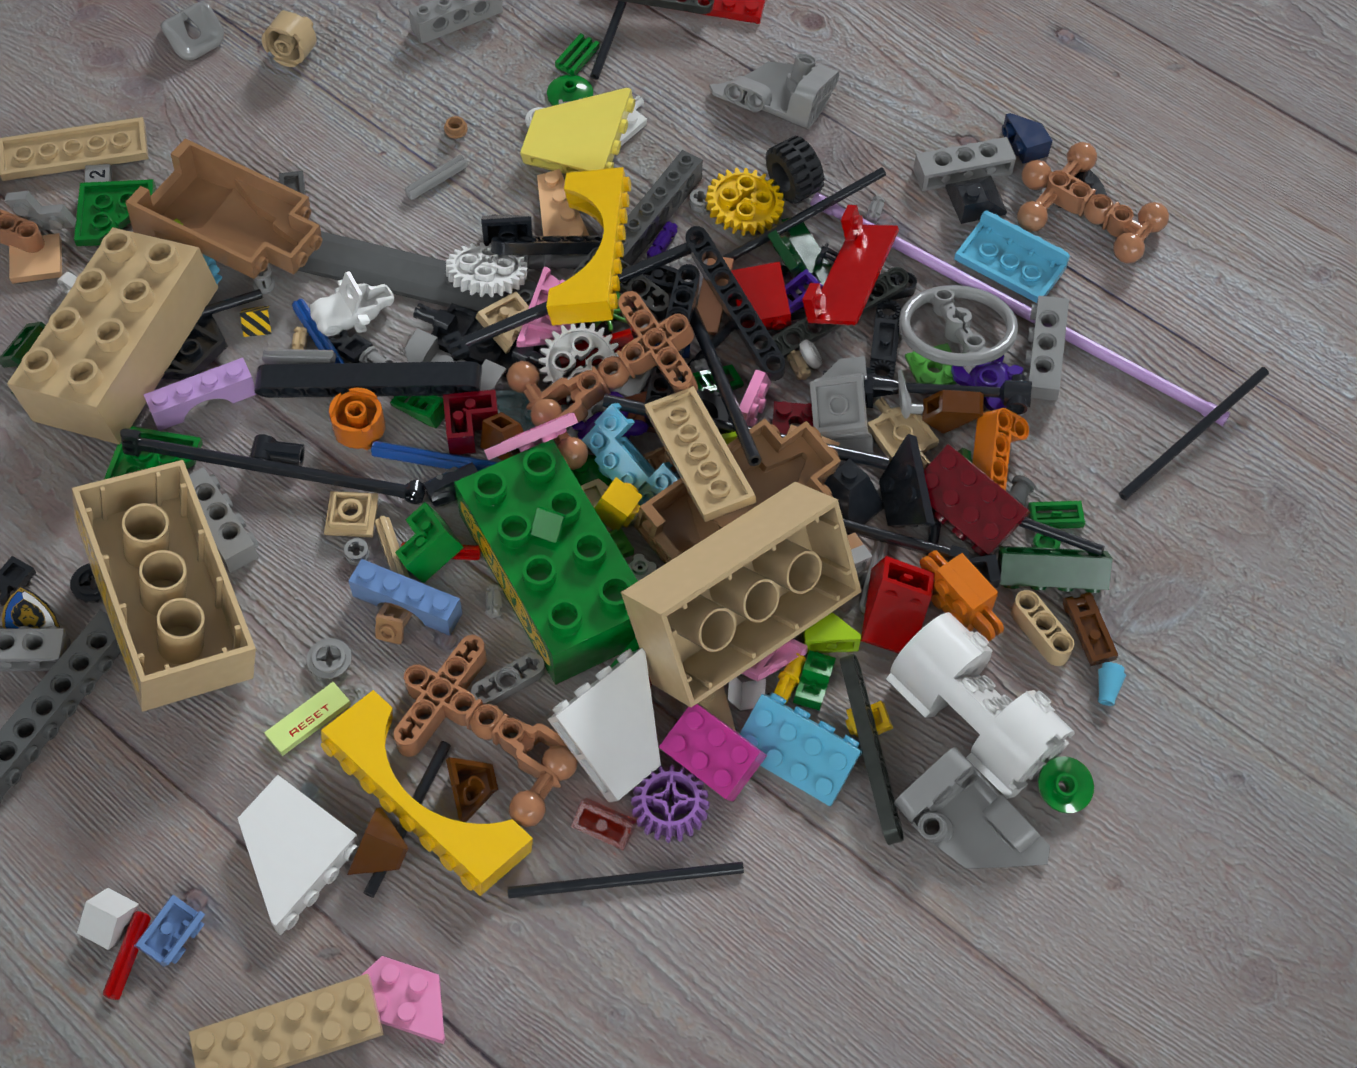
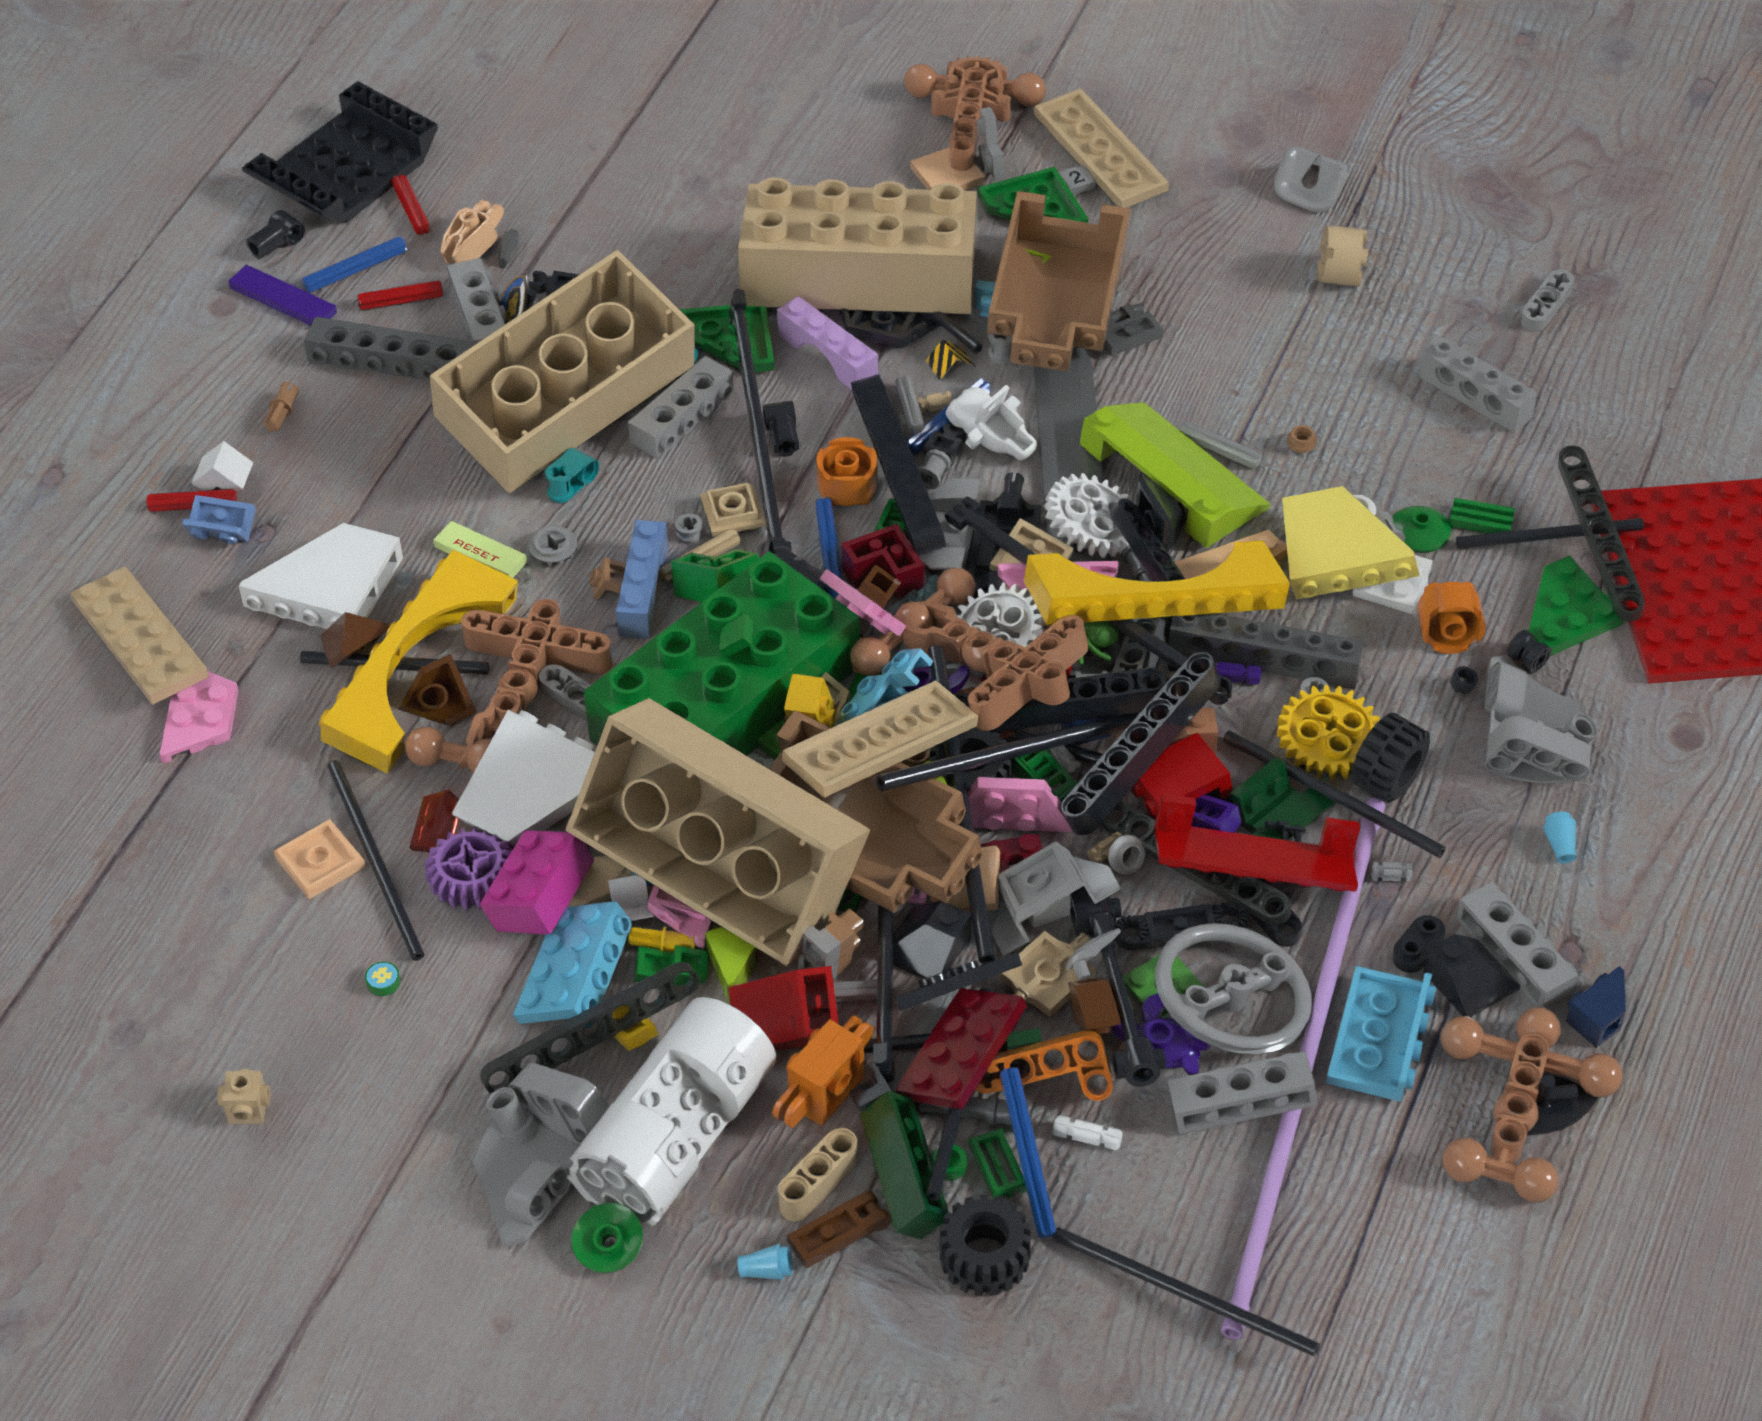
camera: 75 degrees right, 10 degrees down
(44, 849) = (280, 407): none -> medium nougat axle
(258, 625) = (570, 475): none -> teal piece
(452, 205) = (1211, 492): none -> lime slope
(610, 926) = (319, 859): none -> light nougat tile
(674, 97) = (1451, 616): none -> orange brick
(680, 38) = (1570, 607): none -> green plate
(715, 70) = (1529, 651): none -> black wheel
(725, 114) = (1469, 683): none -> black hinge
(758, 900) = (382, 978): none -> tile
(854, 1043) = (244, 1097): none -> tan brick
(880, 110) = (1561, 835): none -> medium azure cone
(937, 214) = (1419, 941): none -> black plate
(1044, 452) = (1087, 1132): none -> white axle
(1063, 487) = (1028, 1153): none -> blue axle
(1142, 522) = (985, 1220): none -> black tyre

